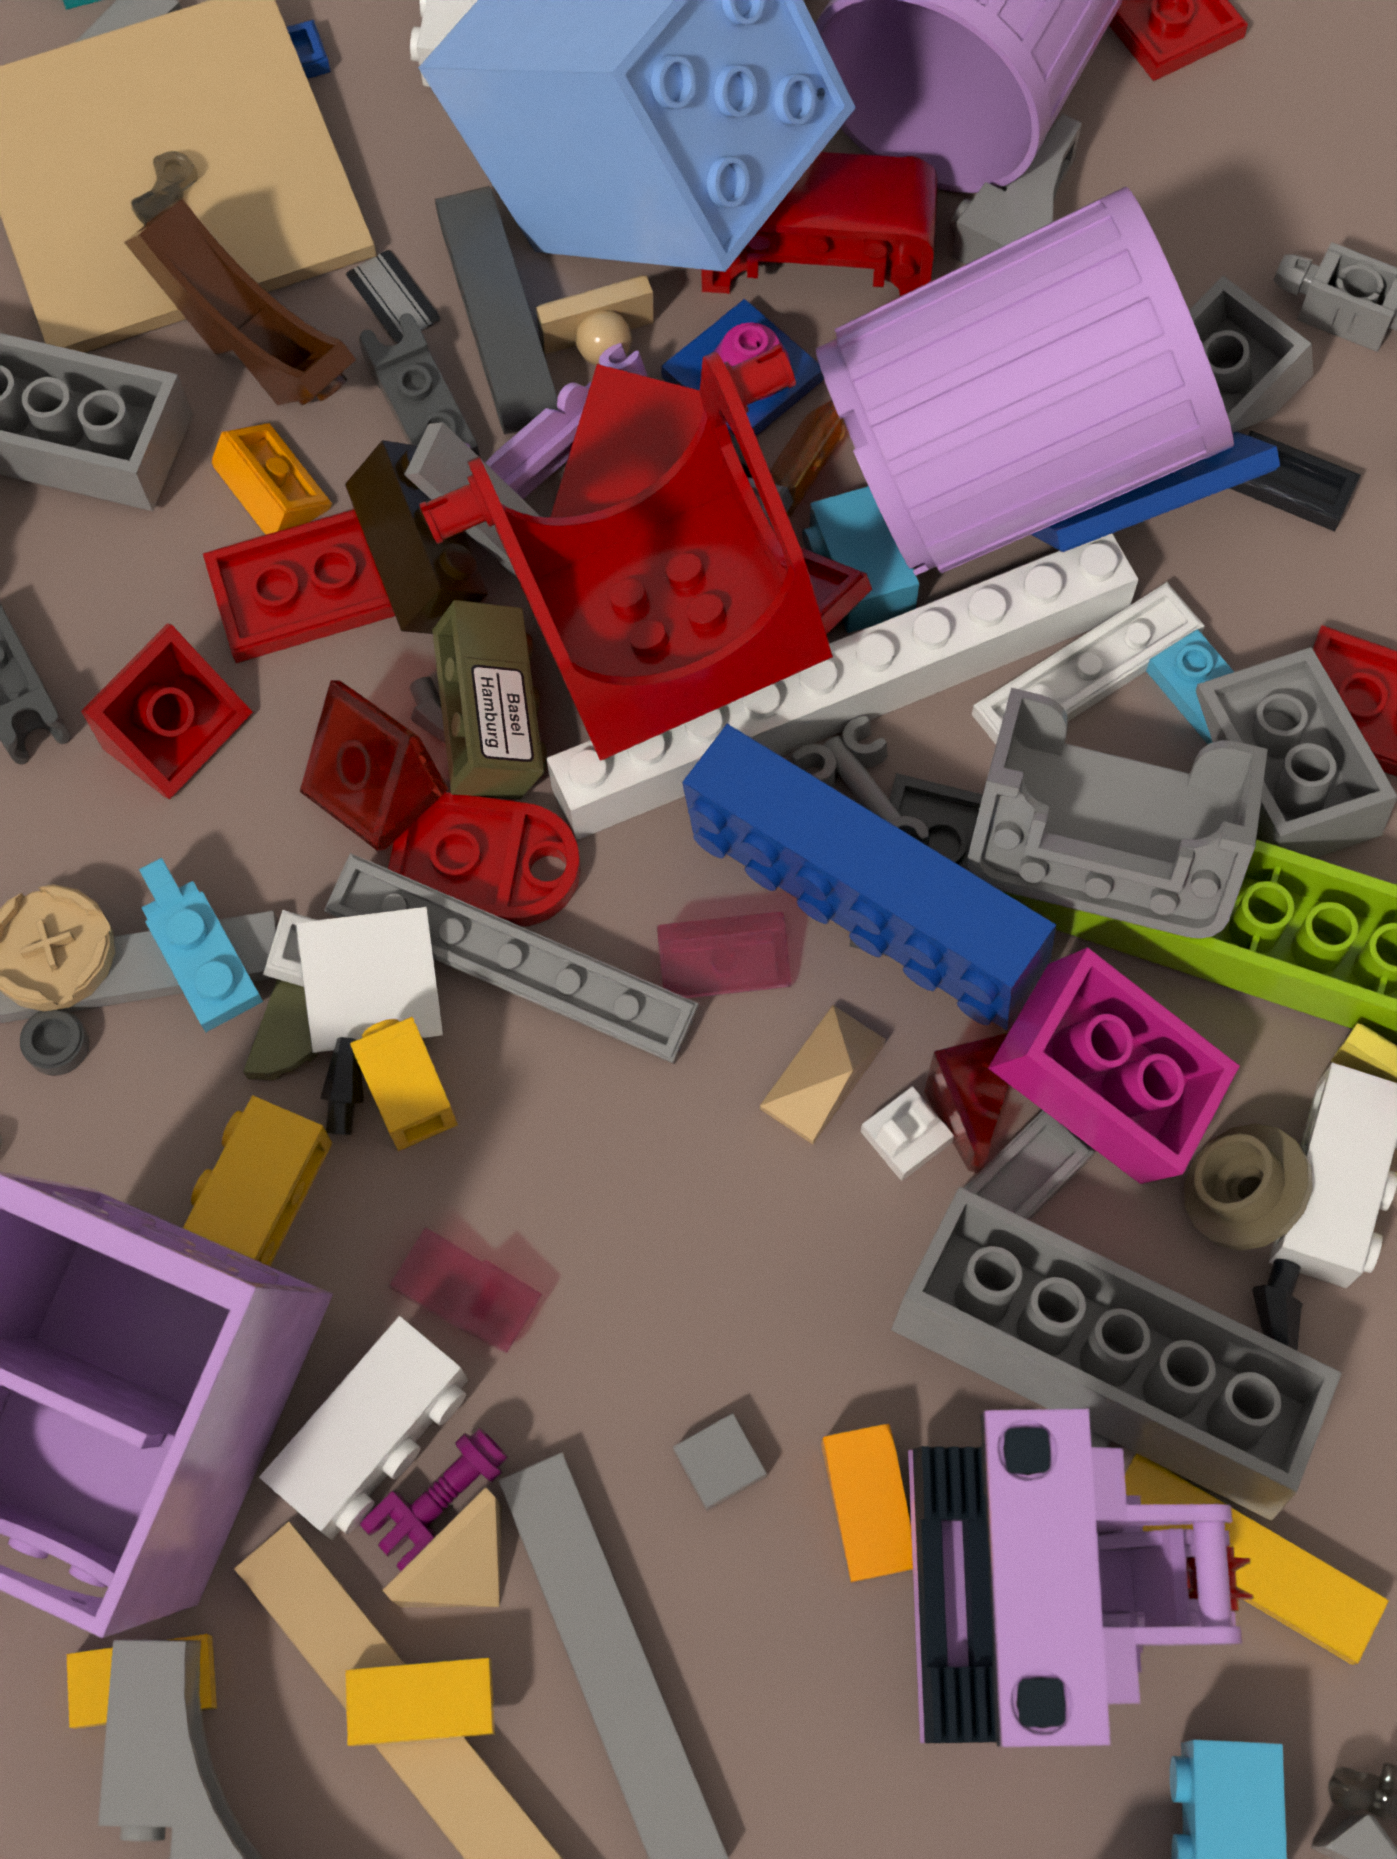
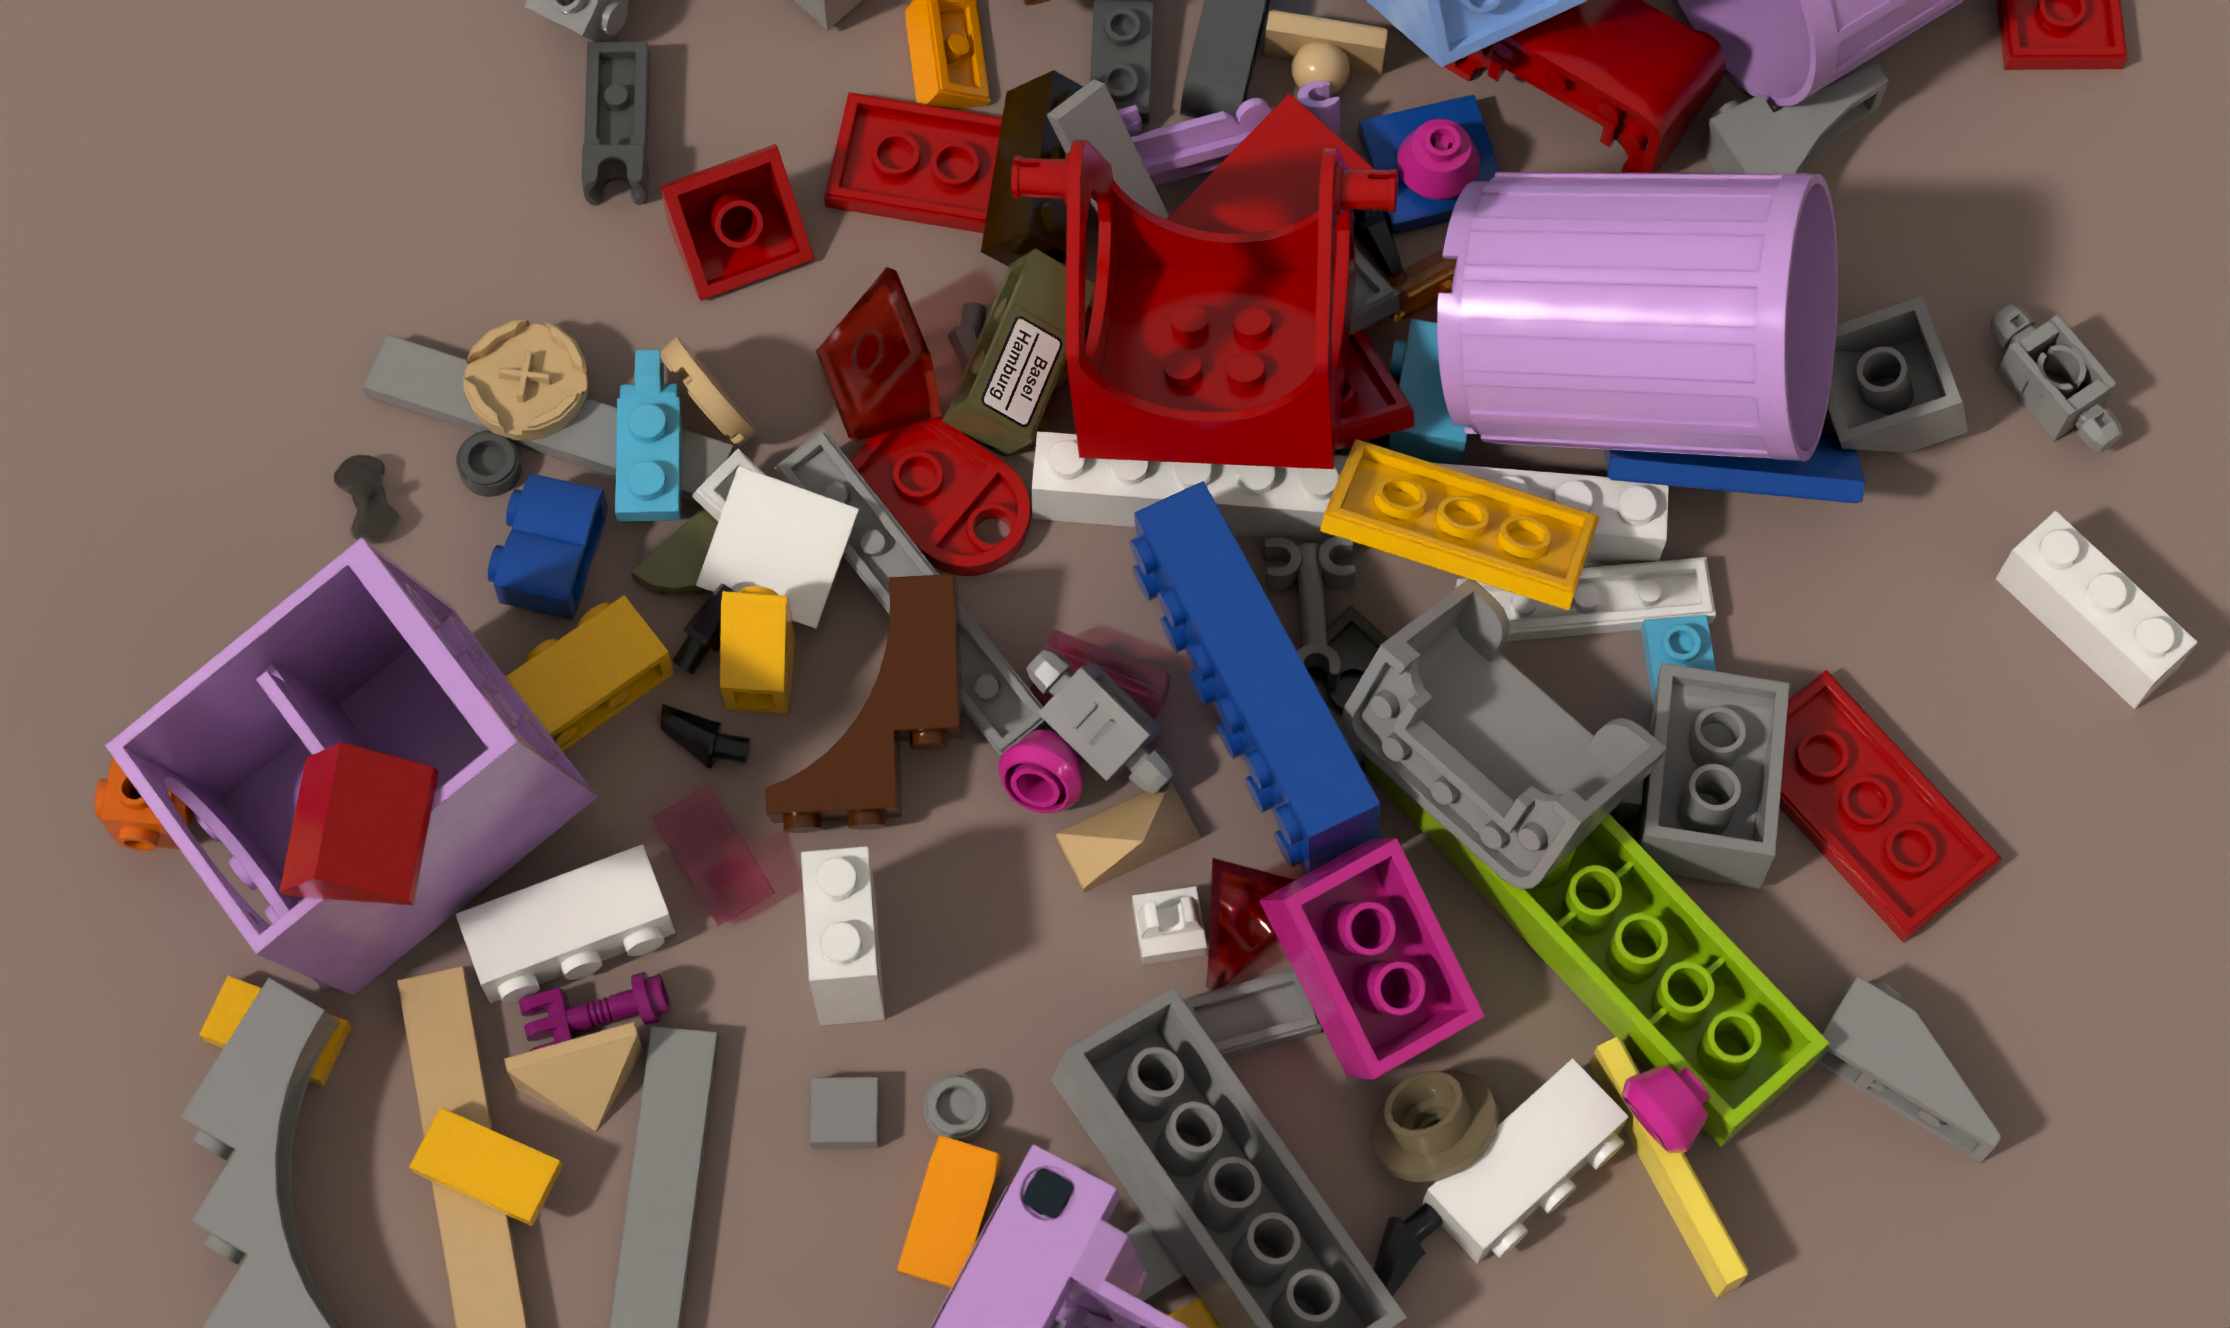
camera: 25 degrees right, 0 degrees up
(141, 1457) = (359, 827): none -> red slope
(153, 1087) = (549, 545): none -> blue brick
(225, 873) = (707, 392): none -> tan tile
(393, 1187) = (703, 737): none -> black bar
(572, 1052) = (911, 700): none -> reddish brown arch
(636, 1299) = (842, 935): none -> white brick
(721, 1056) = (1042, 772): none -> dark pink cone
(747, 984) = (1100, 721): none -> light grey piece
(818, 1401) = (957, 1108): none -> light grey tile
(971, 648) = (1460, 524): none -> yellow tile
(1303, 485) = (1894, 527): black tile -> none

